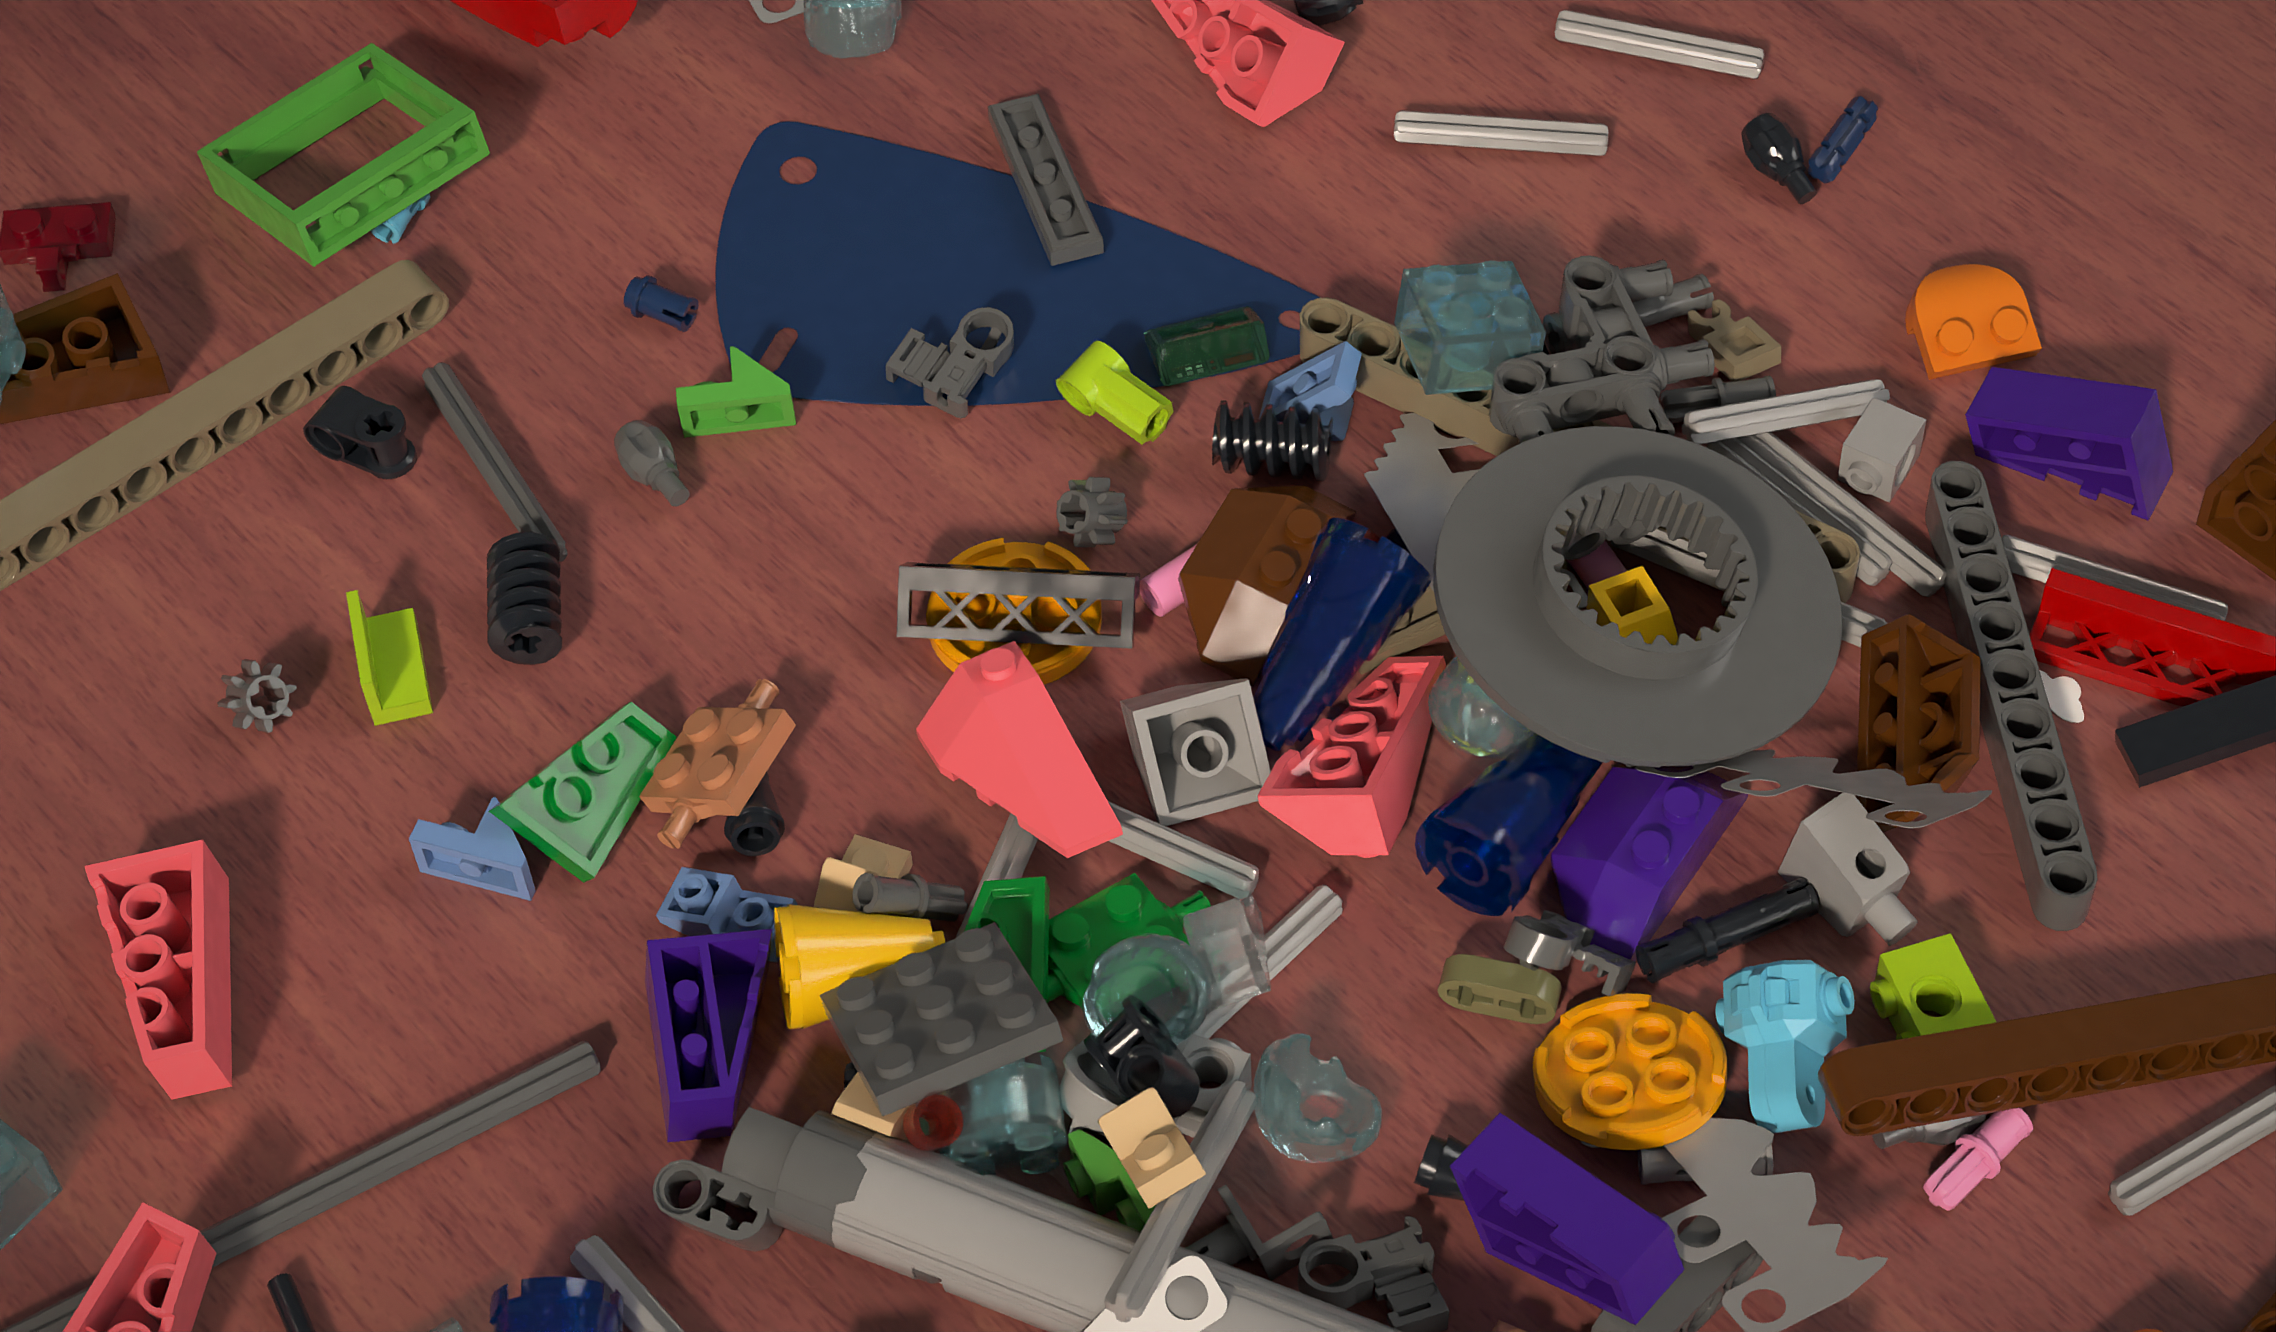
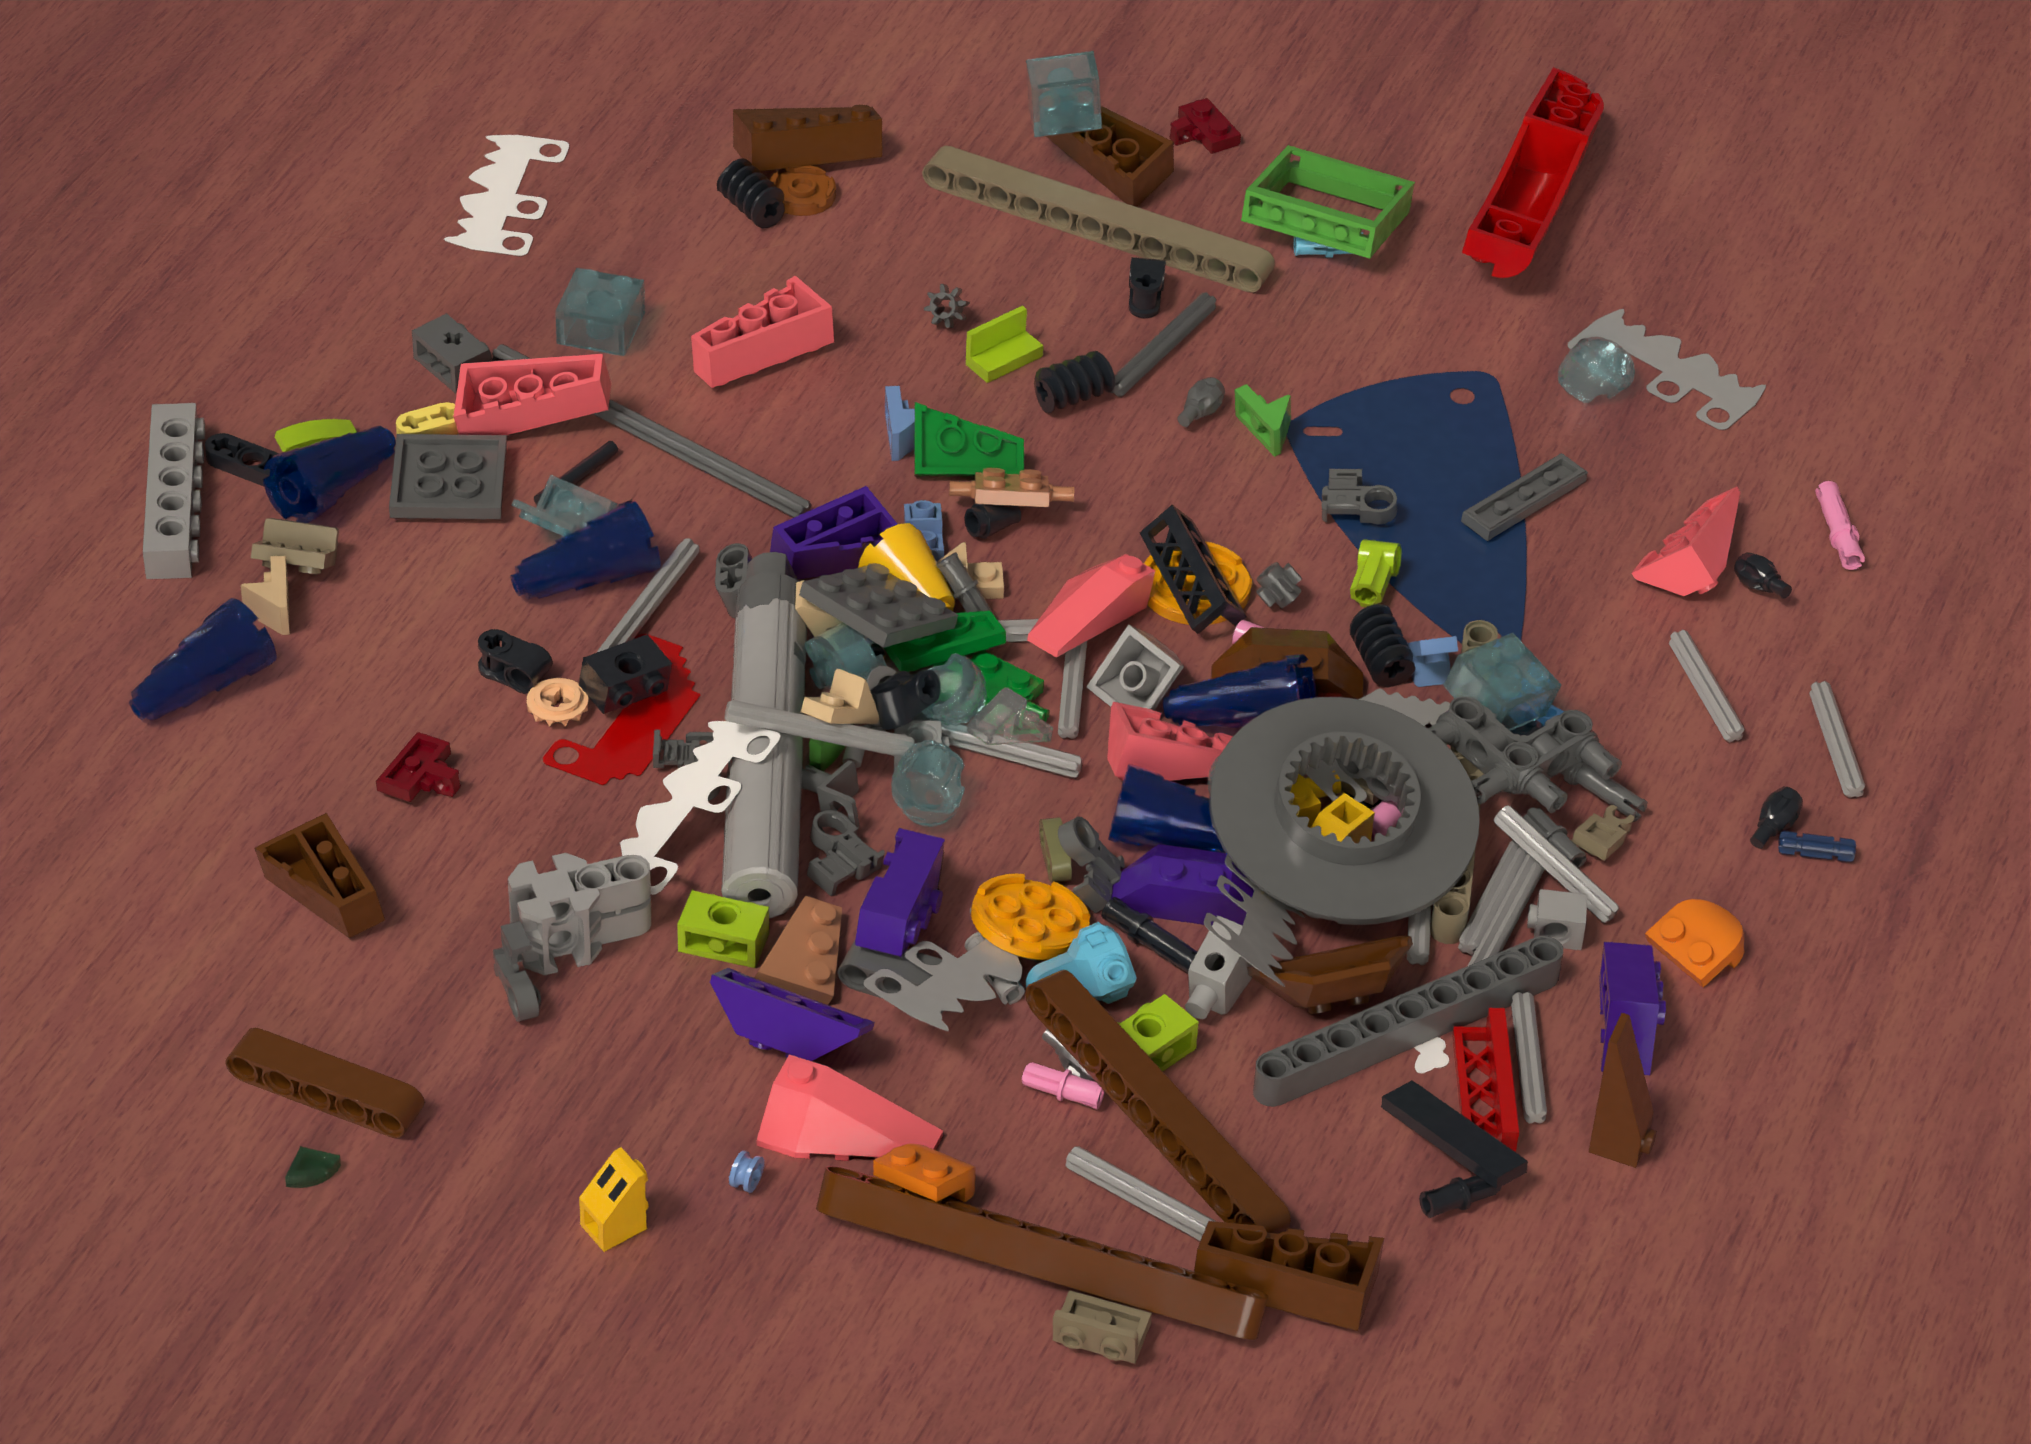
camera: 60 degrees right, 10 degrees down
(660, 303) = (1317, 363): dark blue pin -> none
(943, 1118) = (807, 613): clear red hose -> none
(1207, 345) = (1442, 602): clear green slope -> none

